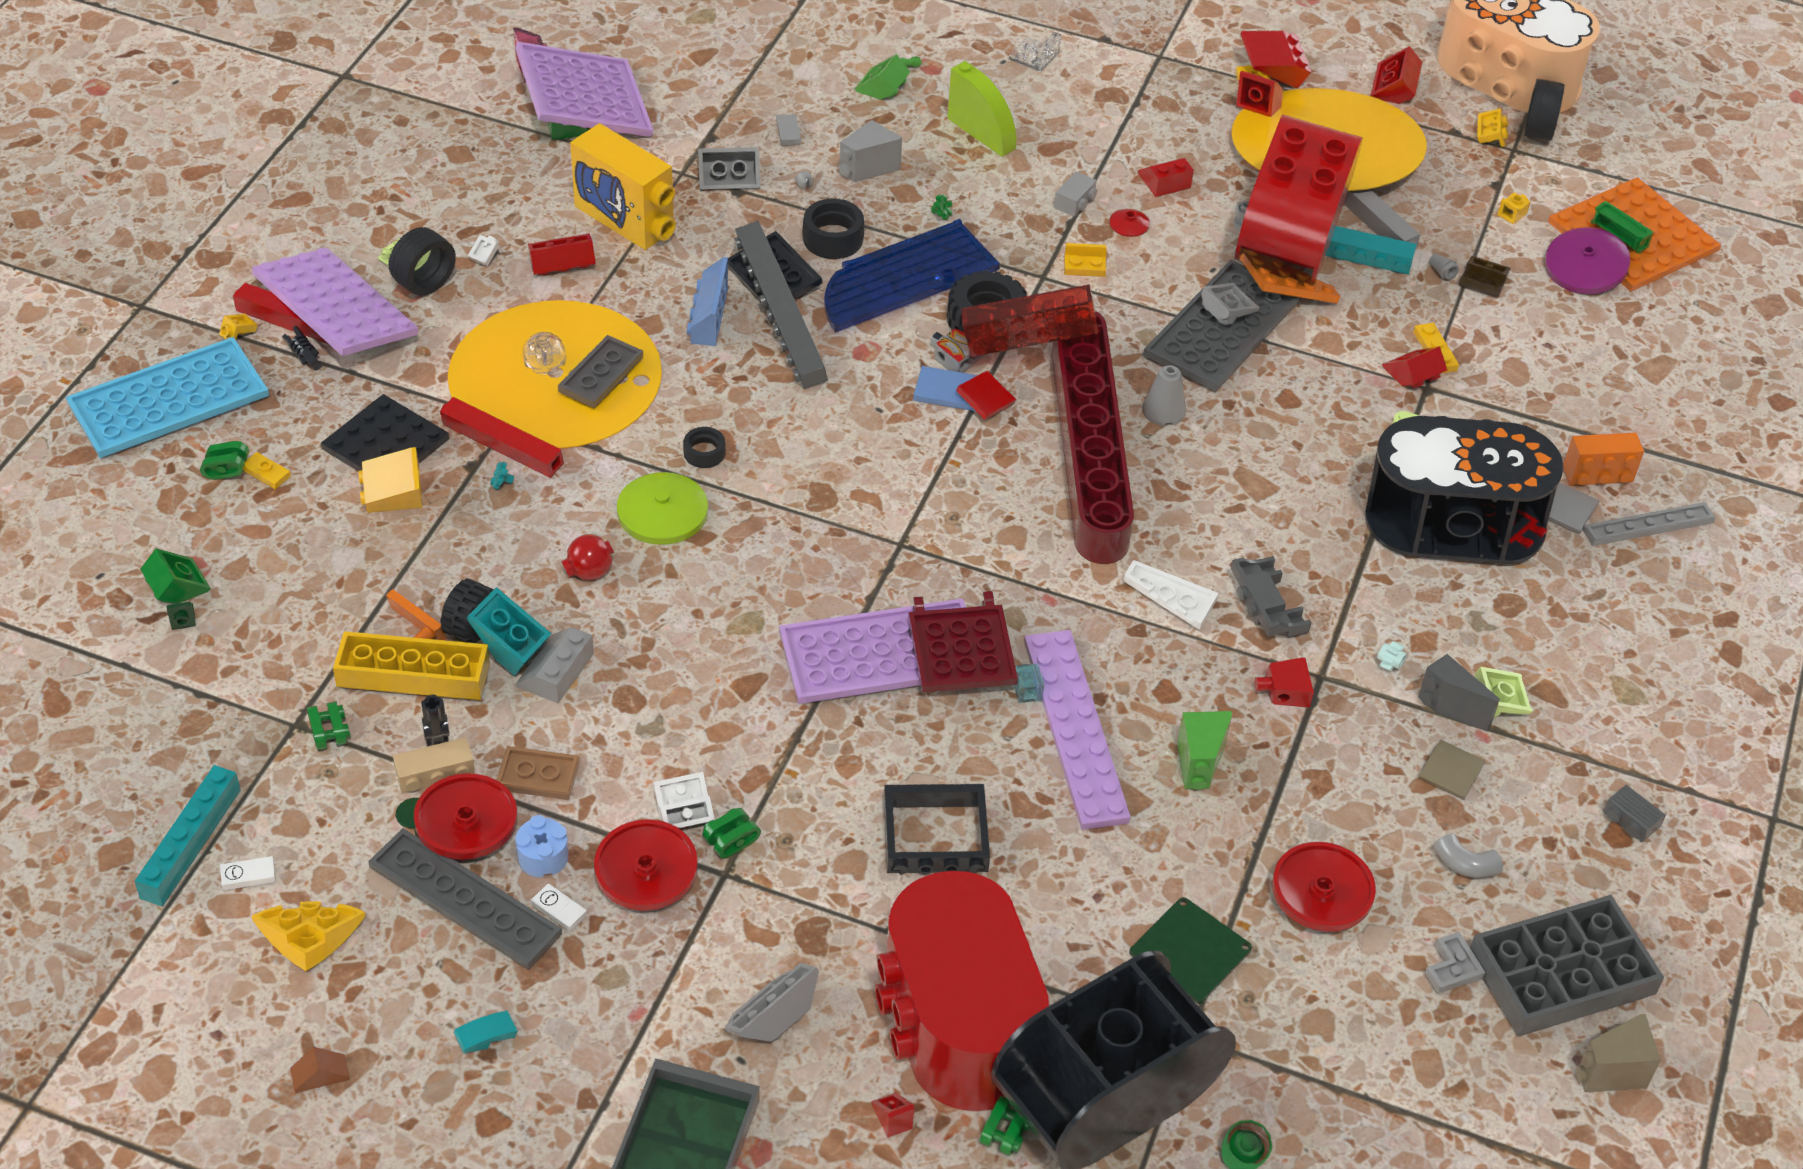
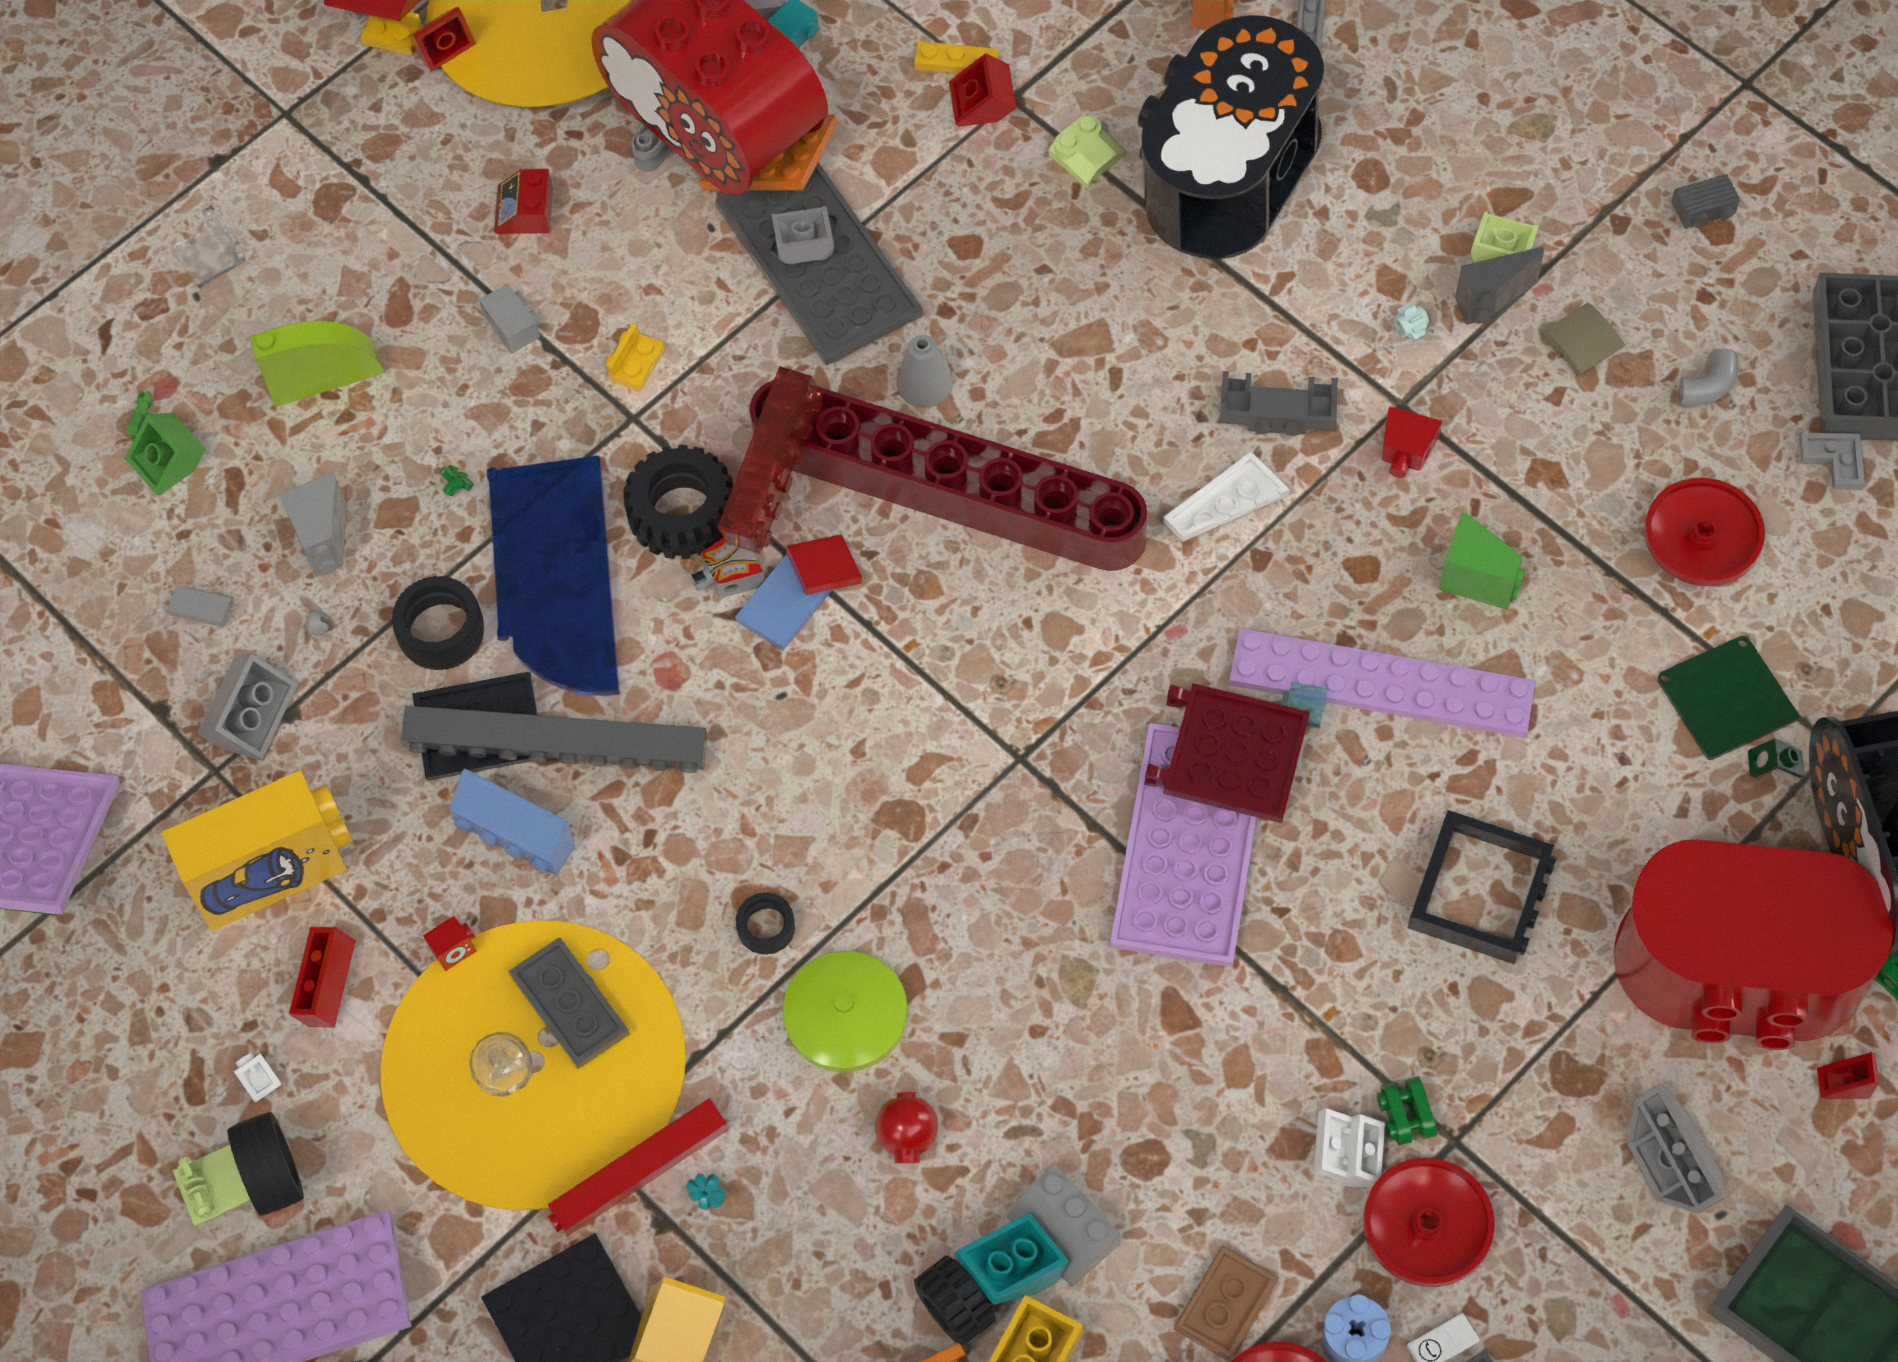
camera: 60 degrees left, 15 degrees up
(614, 304) = (450, 942): none -> red brick
(1129, 222) = (585, 289): red dish -> none

